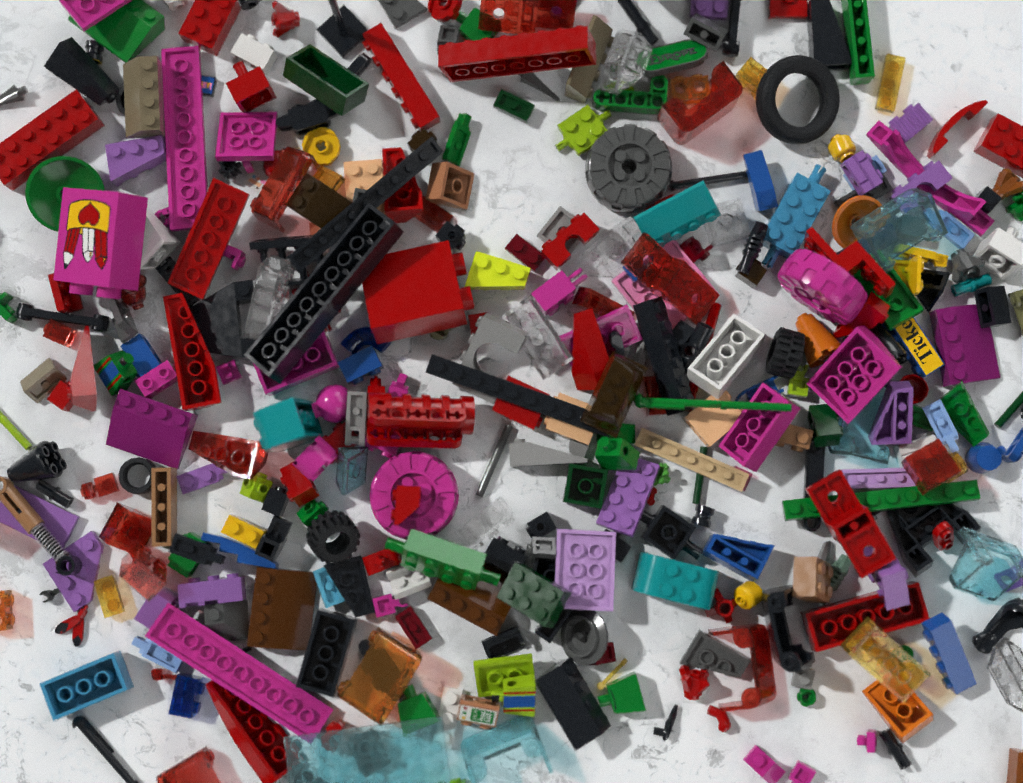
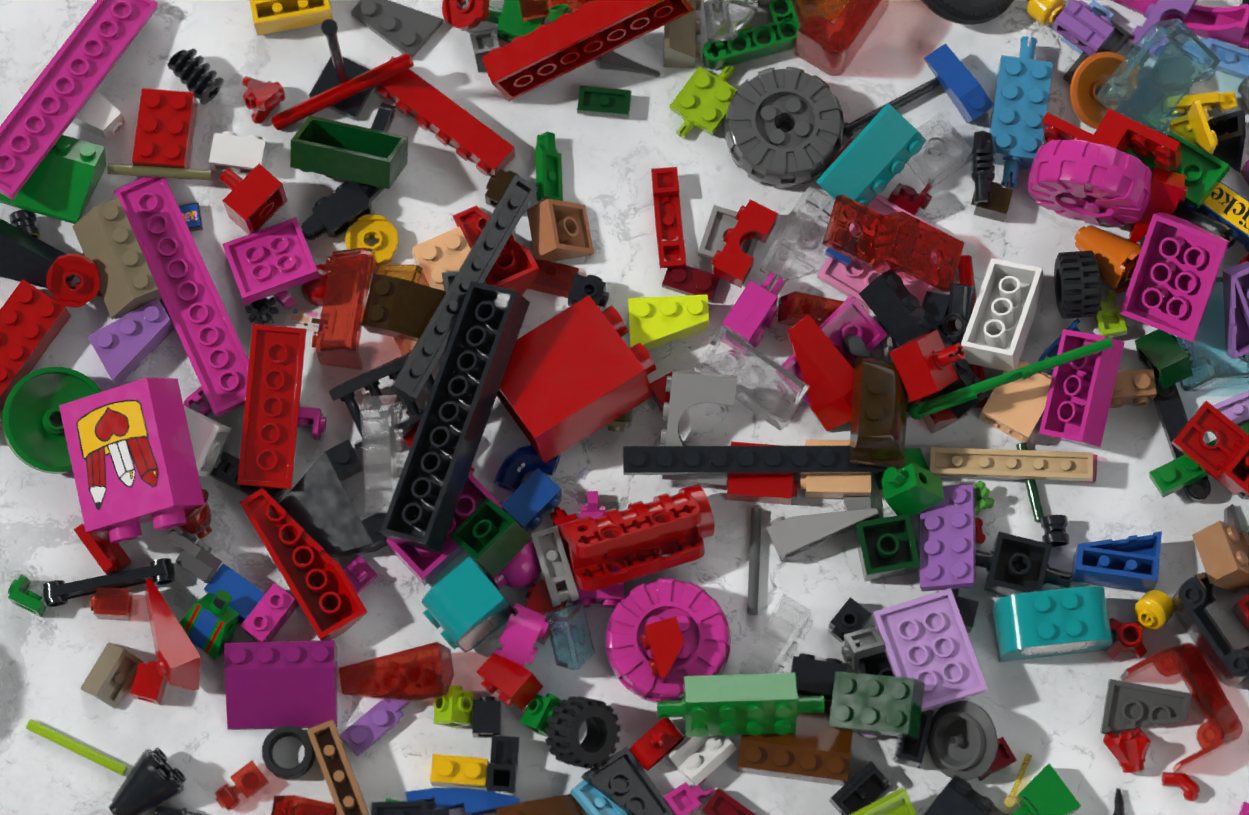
camera: 20 degrees left, 10 degrees down
(115, 95) = (84, 269): none -> red plate
(195, 47) = (162, 172): none -> olive bar
(318, 384) = (490, 537): none -> dark green brick
(338, 35) = (342, 91): none -> red axle
(503, 30) = (557, 10): none -> green plate
(526, 203) = (668, 217): none -> red slope
(657, 374) = (926, 364): none -> red brick

